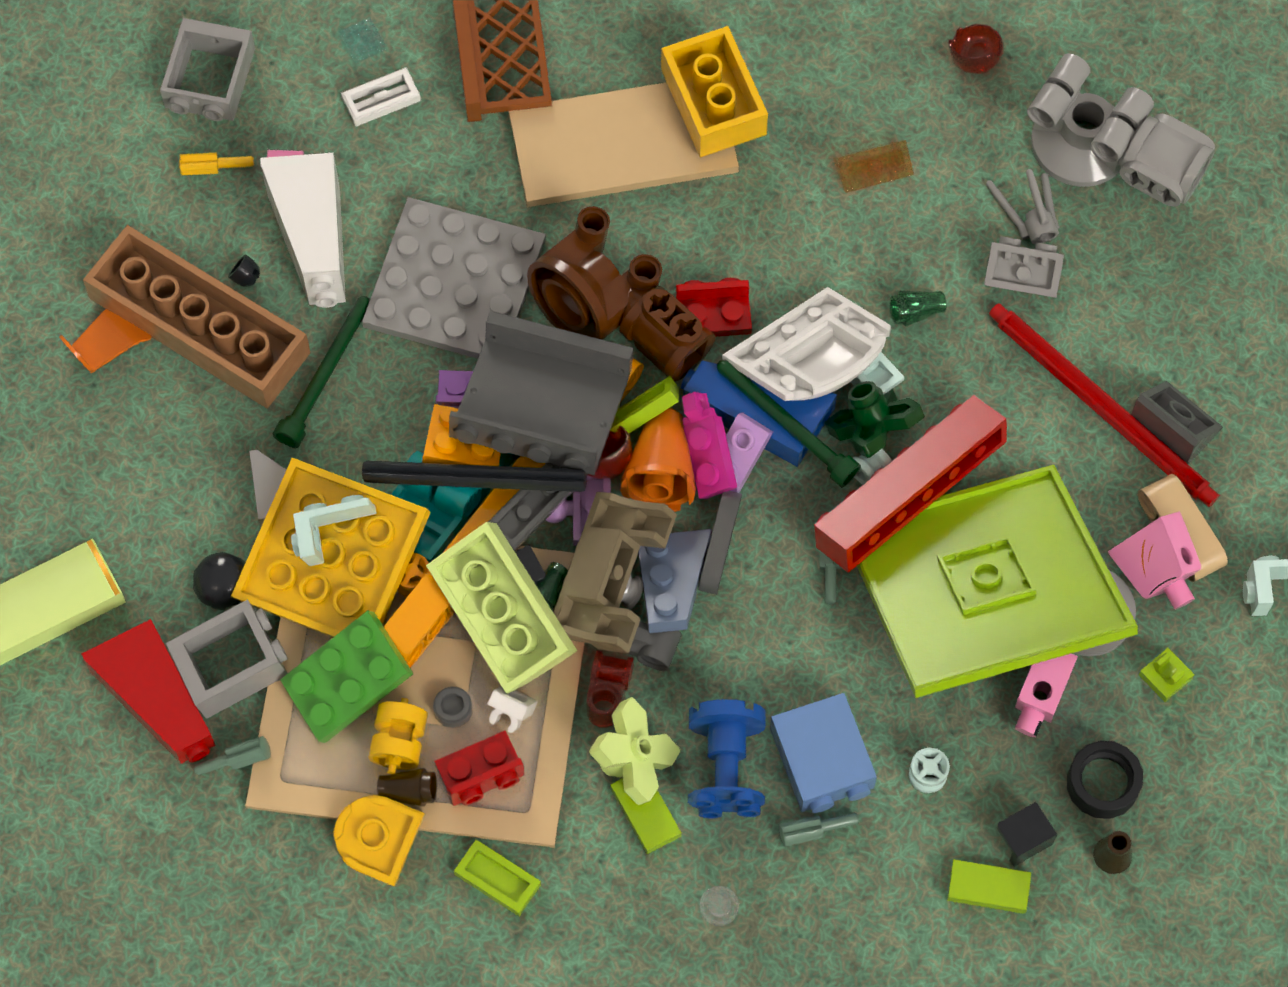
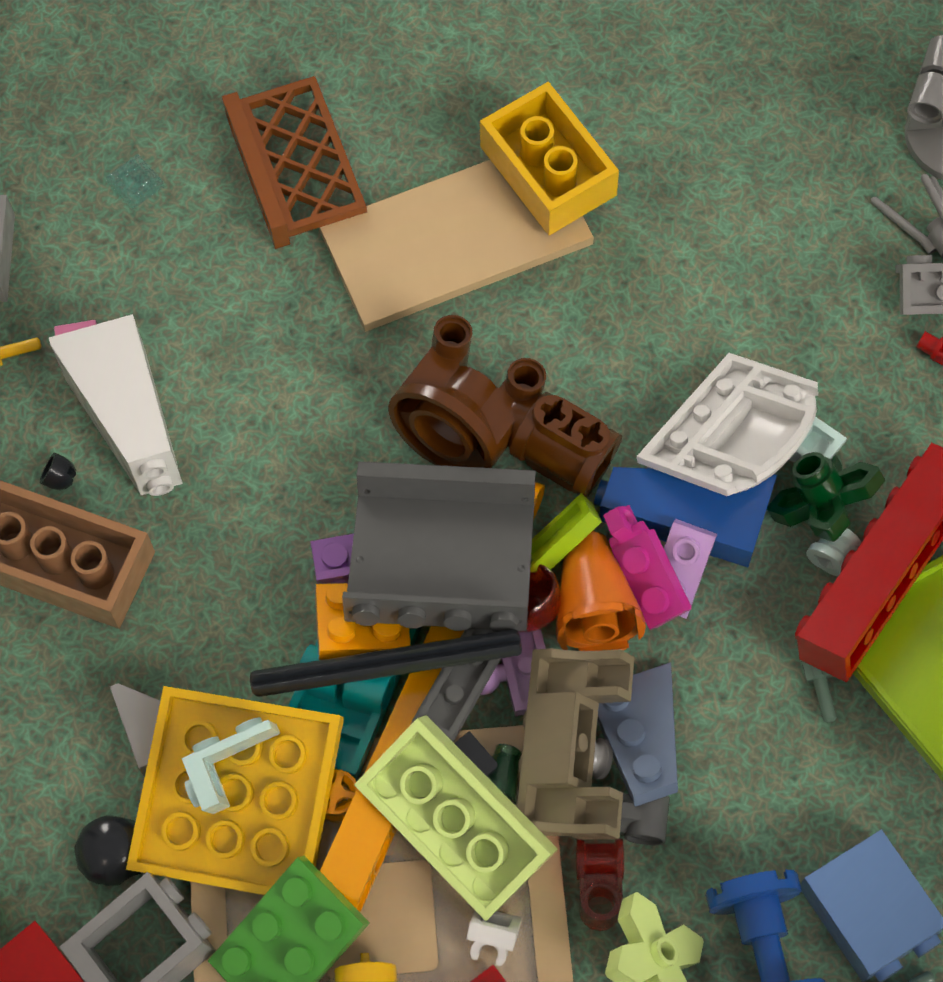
camera: 10 degrees left, 0 degrees up
(291, 429) = (153, 647): dark green piece -> none
(380, 103) = (177, 252): white tile -> none
(449, 275) = (298, 429): light grey plate -> none
(452, 707) = (422, 948): dark grey tile -> none
(718, 305) = (613, 397): red bracket -> none
(720, 542) = (686, 676): dark grey beam -> none
(841, 468) = (804, 559): dark green piece -> none
(874, 165) = (742, 205): clear orange slope -> none
(914, 306) = (832, 354): clear green cone -> none
(976, 48) = (822, 54): clear red hair -> none

